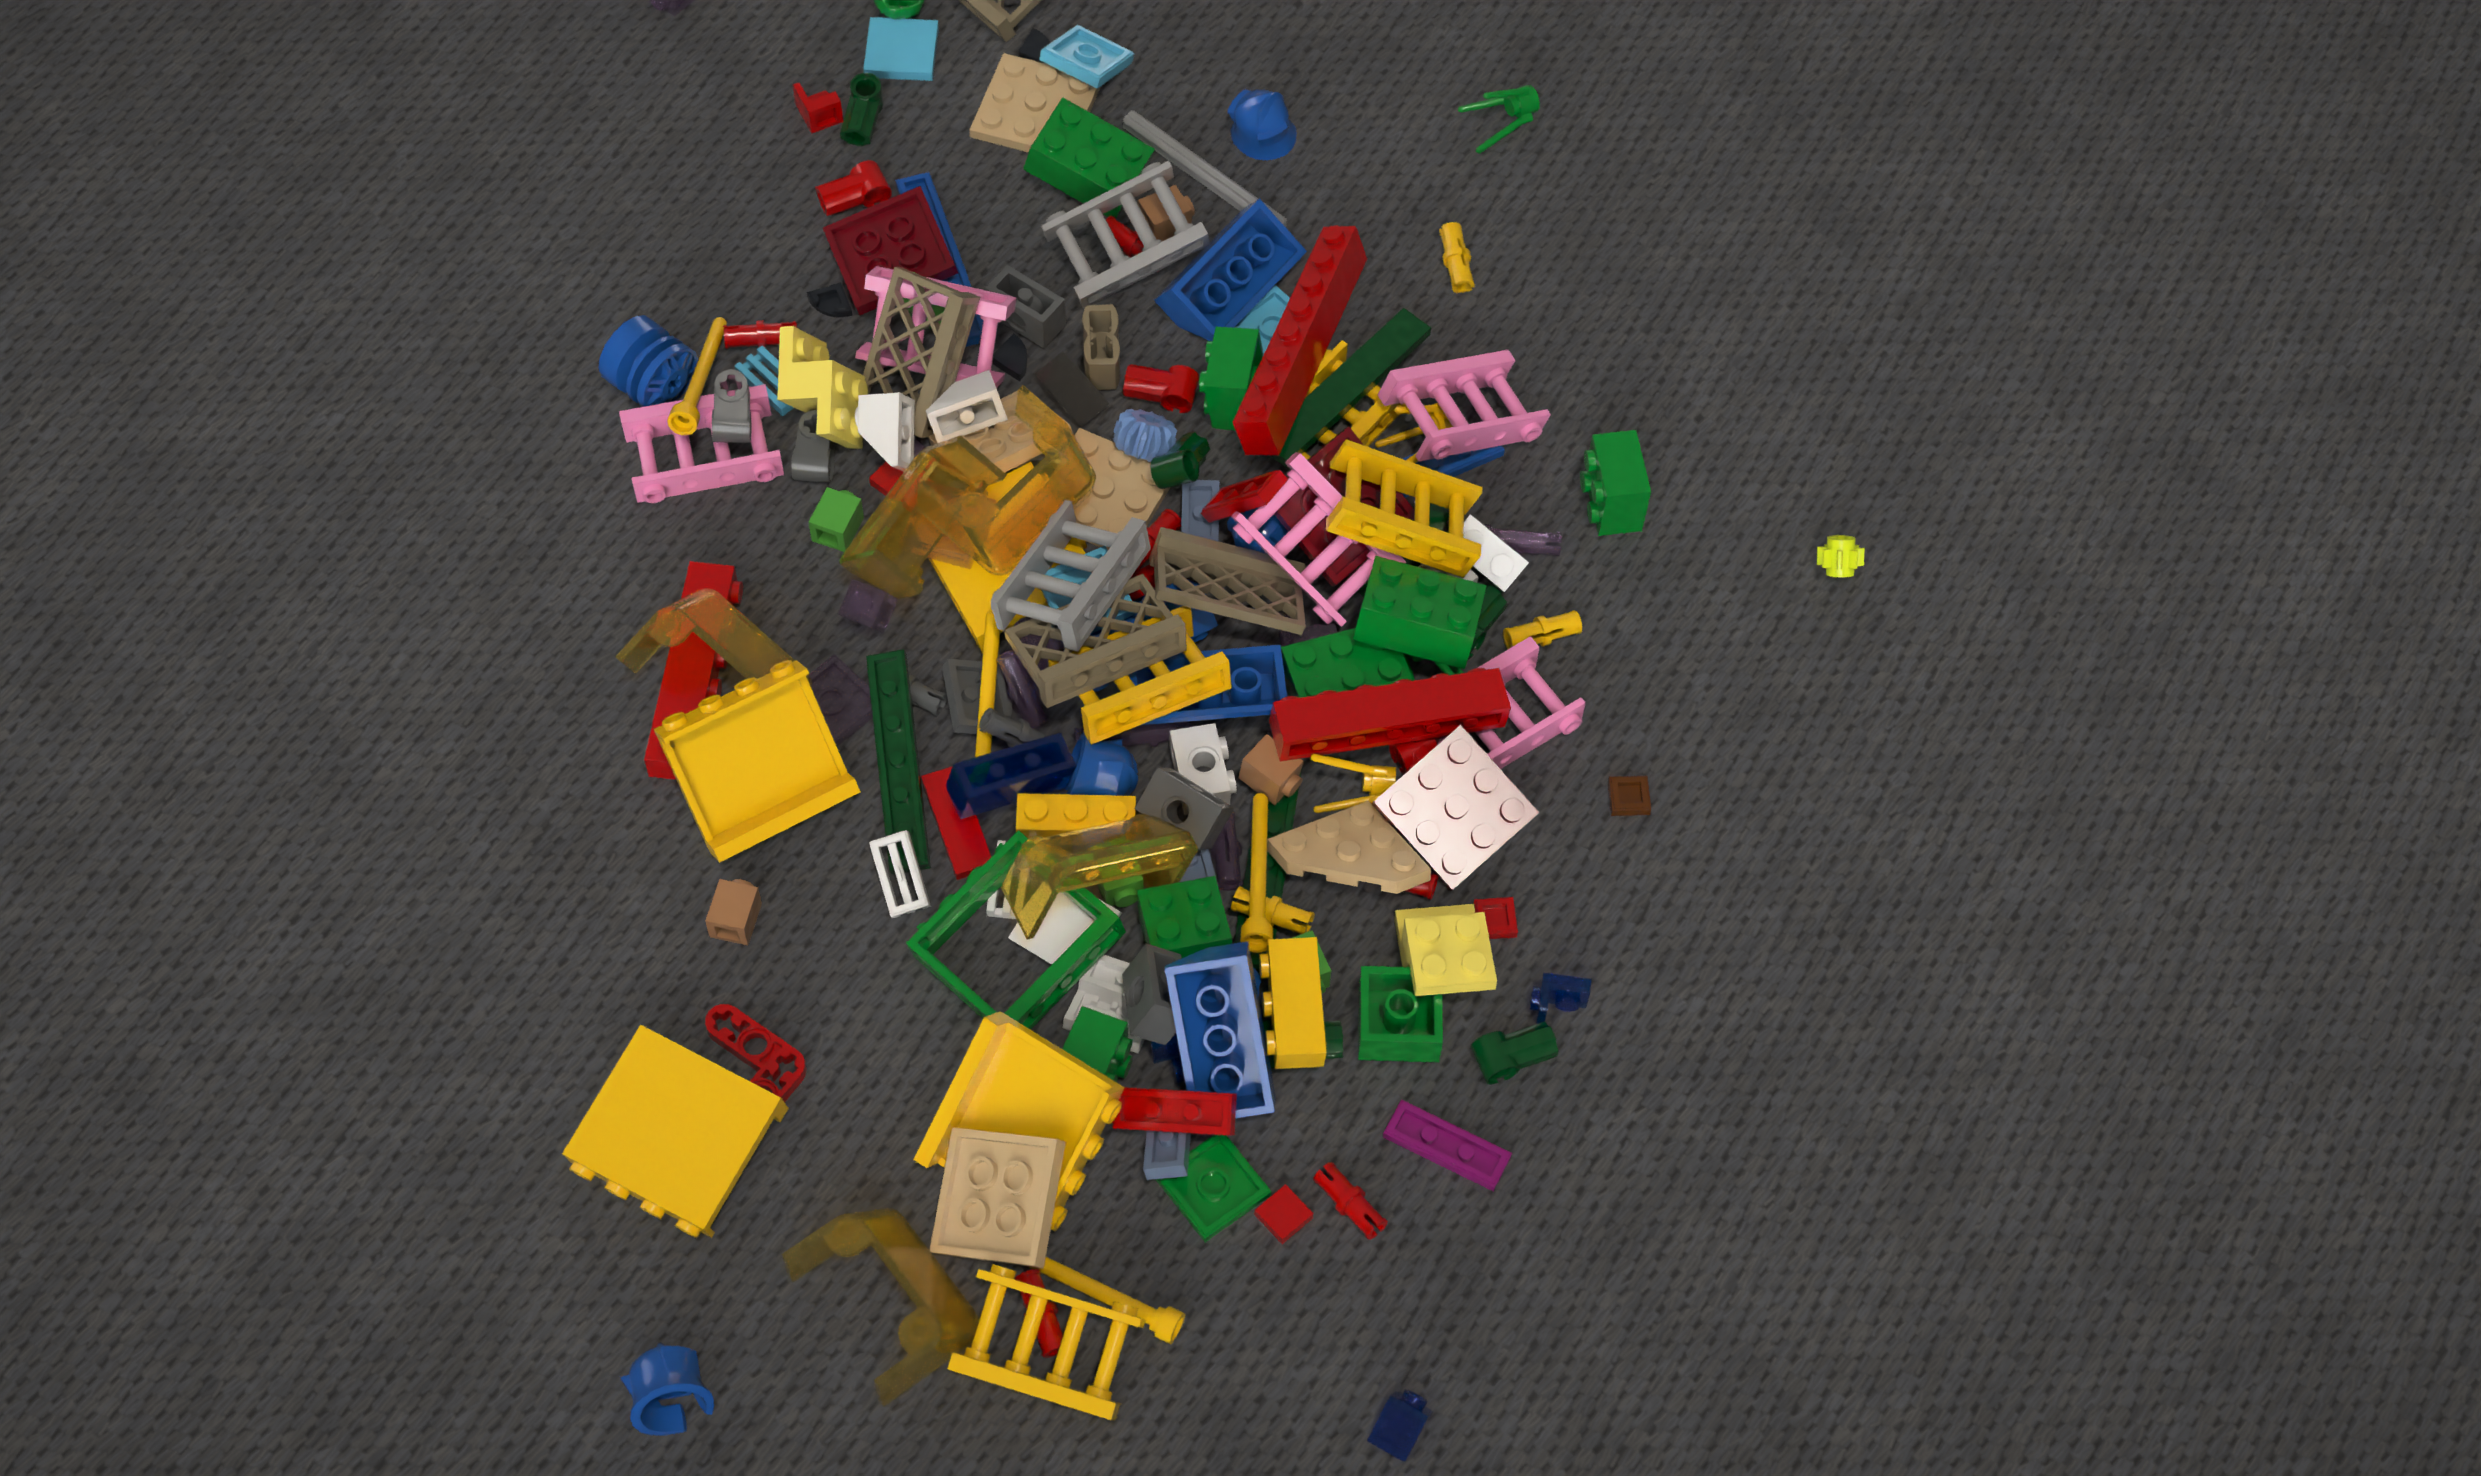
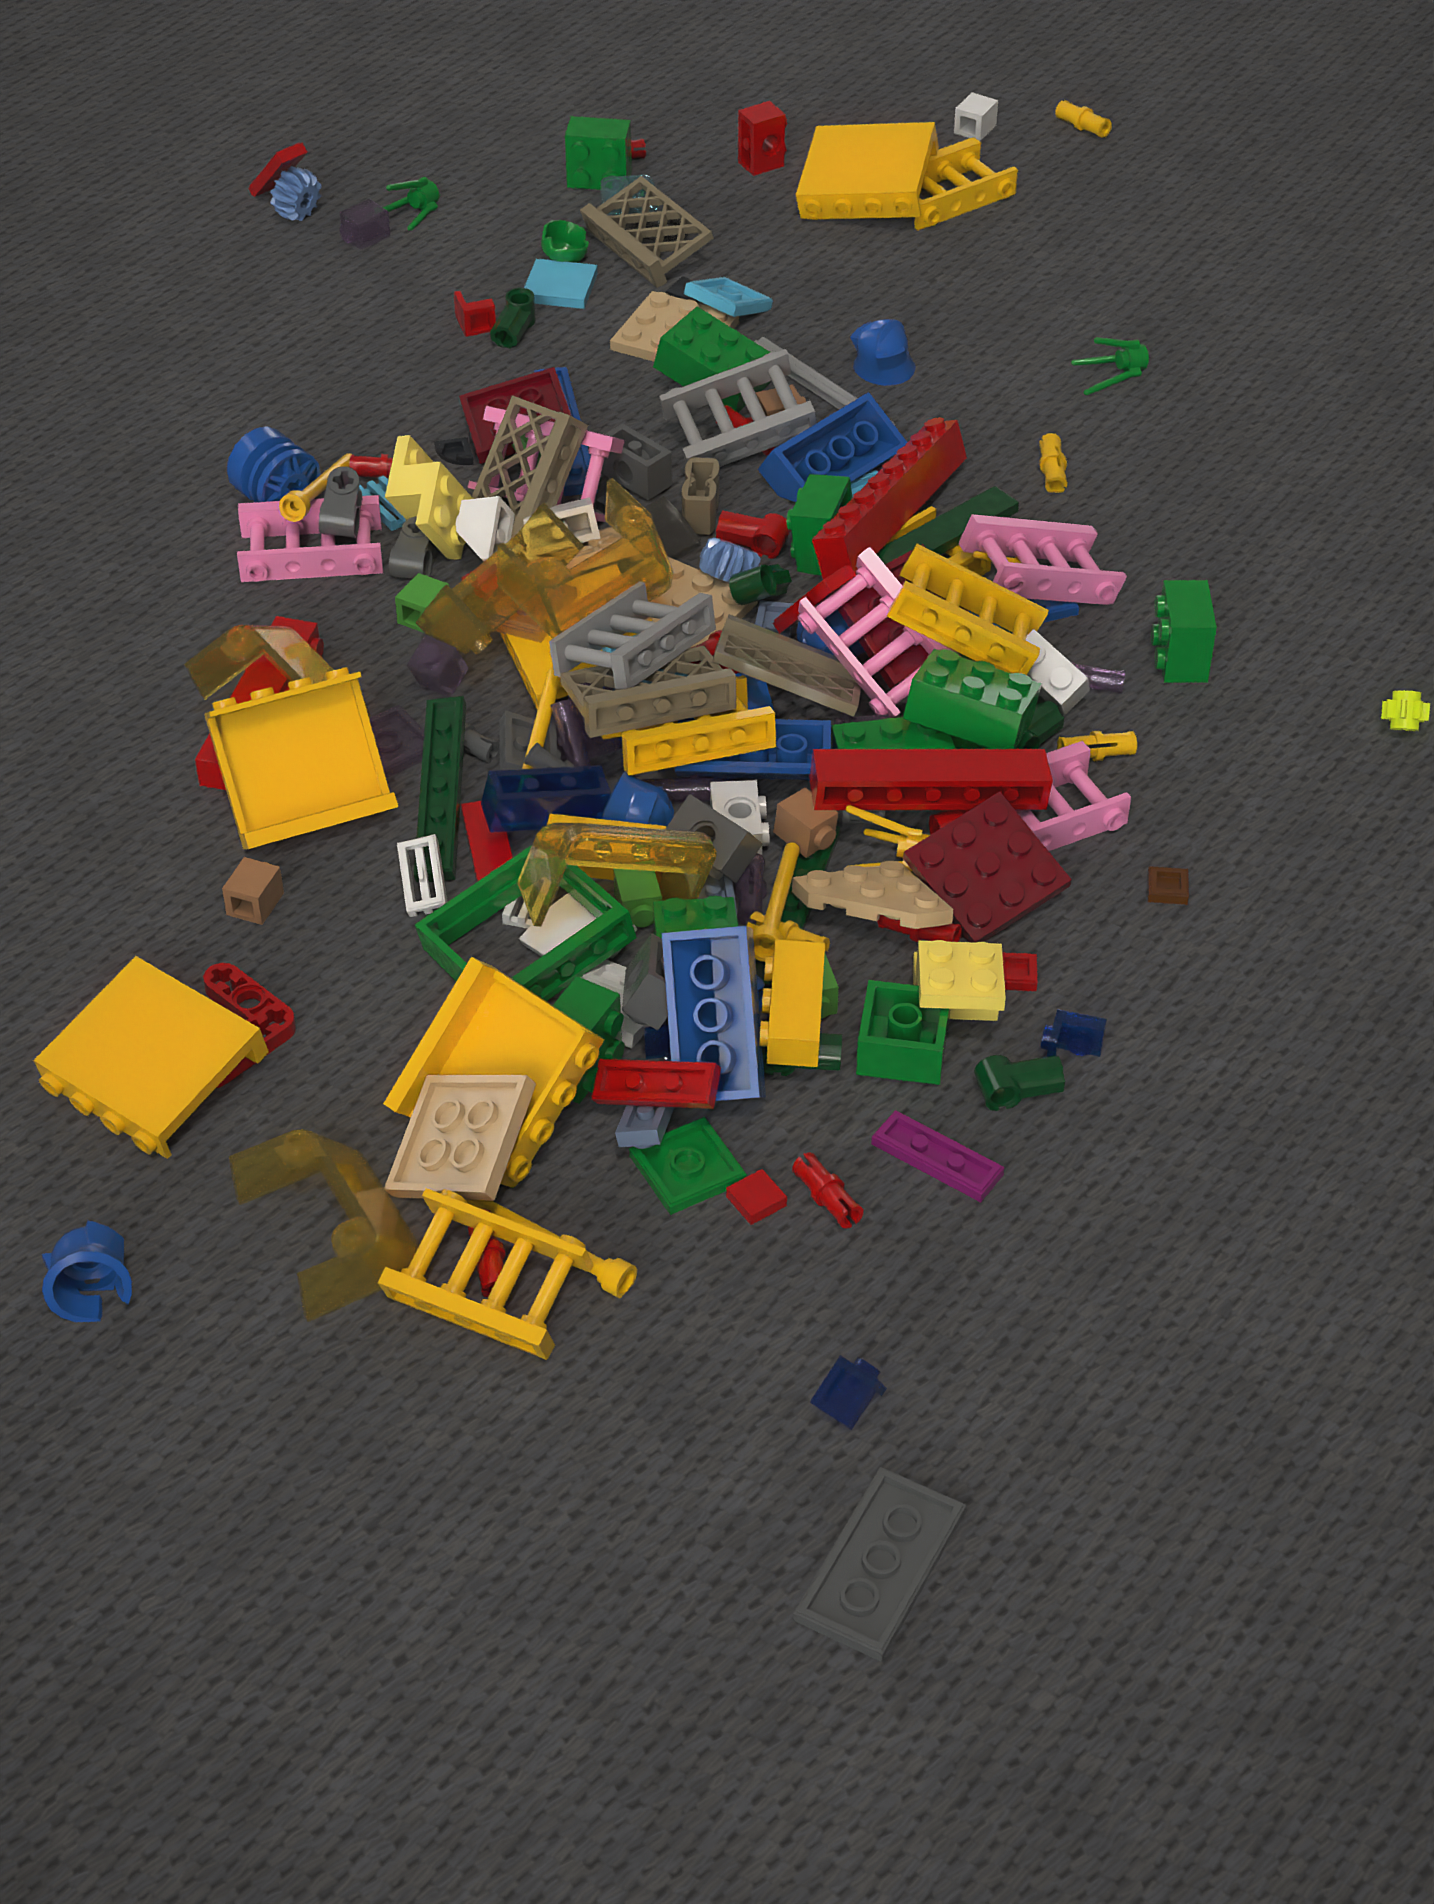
camera: 10 degrees right, 15 degrees down
(863, 186) = (485, 373): red piece -> none

